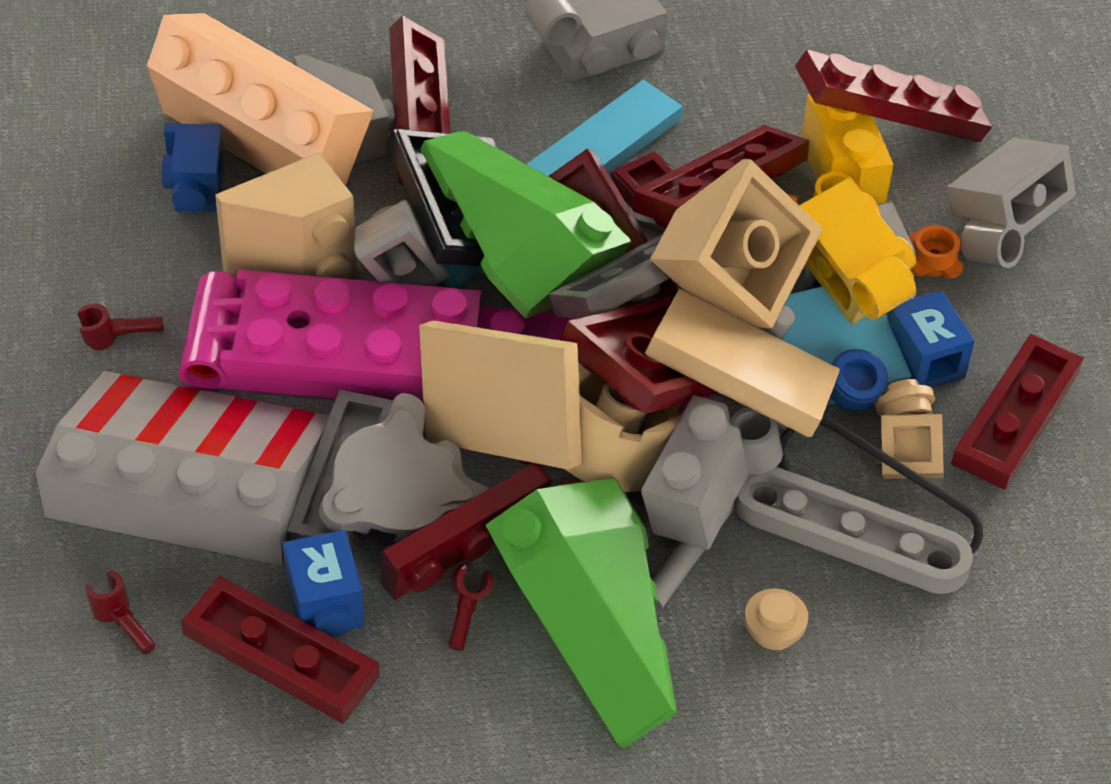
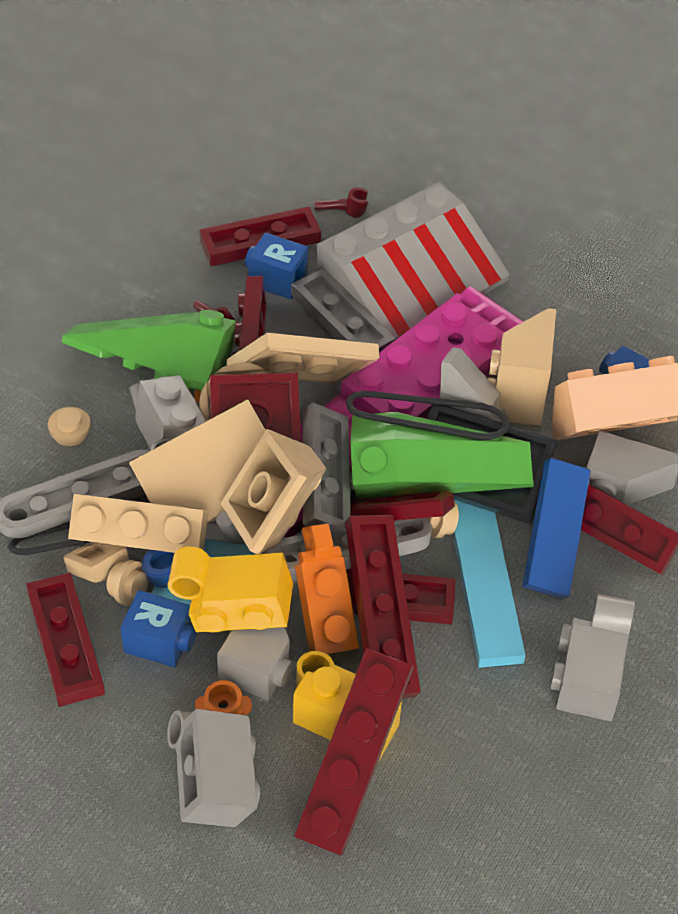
camera: 130 degrees right, 0 degrees up
(101, 331) = (540, 291): dark red hand -> none
(394, 477) = (311, 309): light grey tile -> none
(451, 245) = (480, 436): none -> black piece
(484, 108) = (556, 528): none -> blue tile
(863, 395) = (137, 523): none -> tan plate

